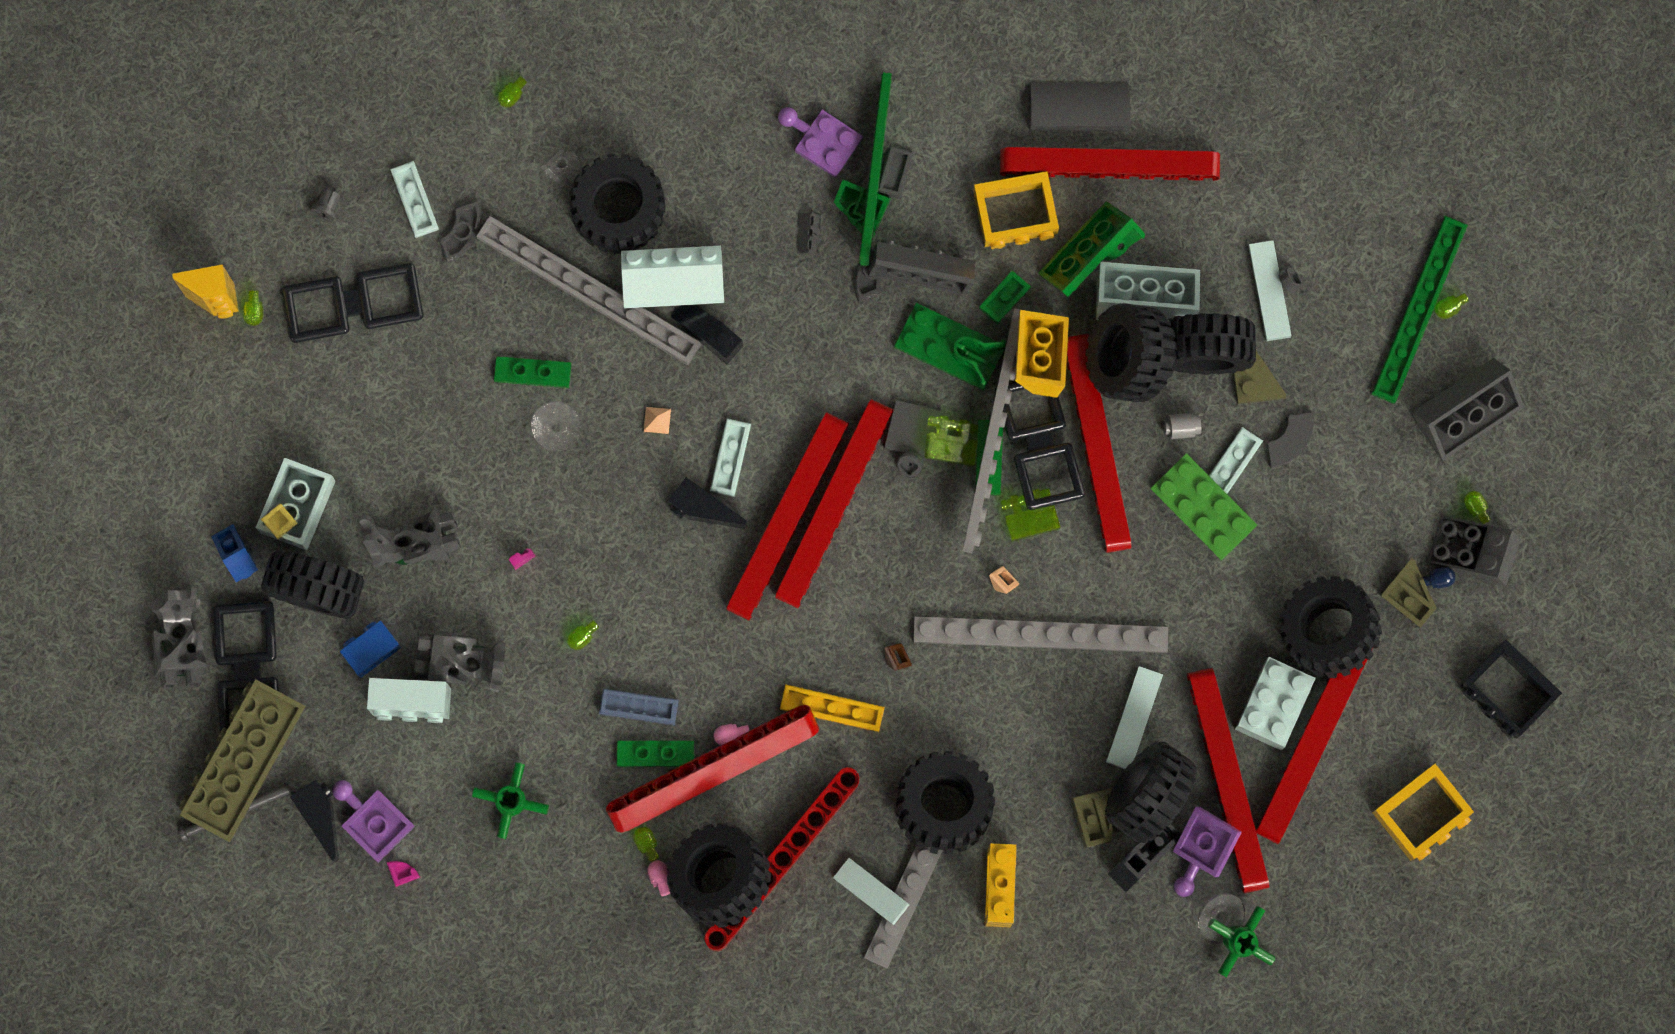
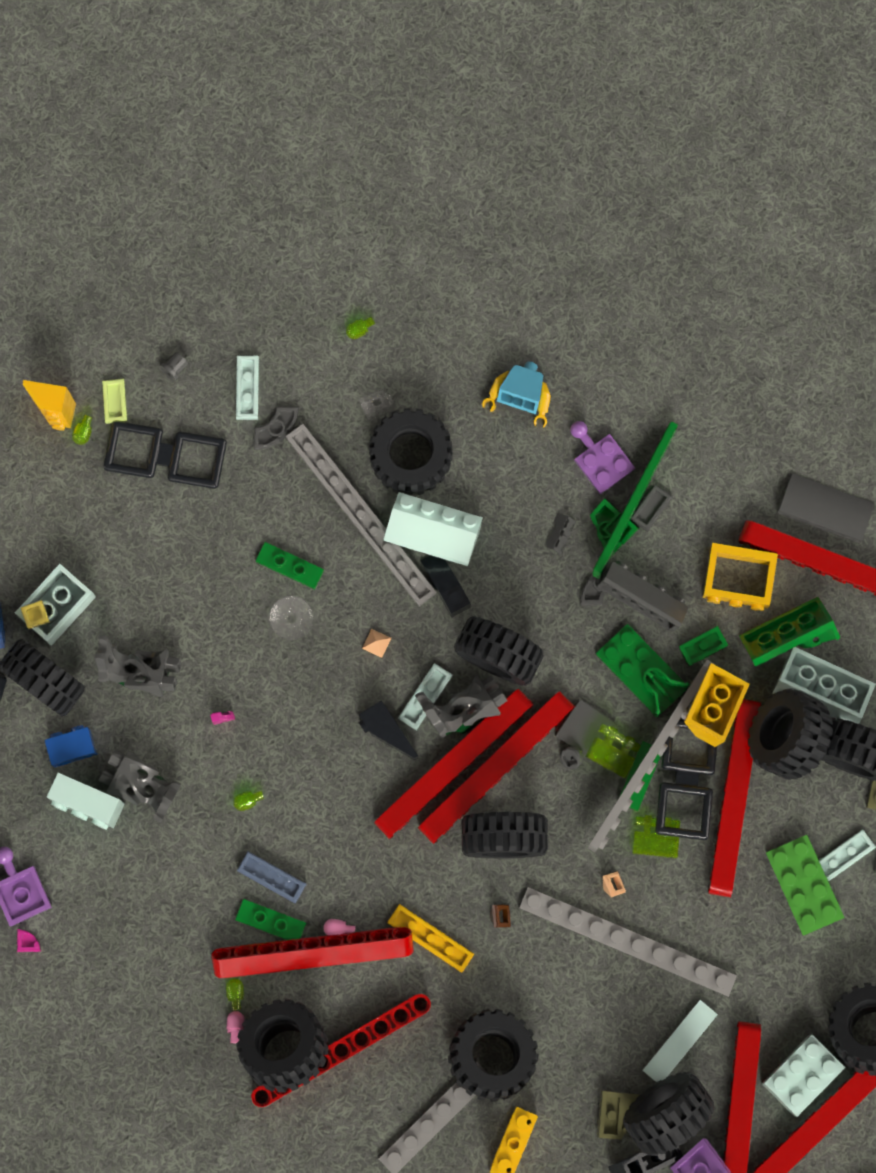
camera: 25 degrees right, 0 degrees up
(275, 265) = (114, 400): none -> yellowish green tile
(505, 792) = (145, 921): green bar -> none
(711, 96) = (521, 389): none -> medium azure torso
(784, 442) = (474, 702): none -> dark grey hips
(792, 378) = (499, 651): none -> black tyre
(870, 568) = (504, 835): none -> black tyre
(871, 891) = (405, 1105): light aqua tile -> none
(1182, 425) = (812, 809): light grey brick -> none

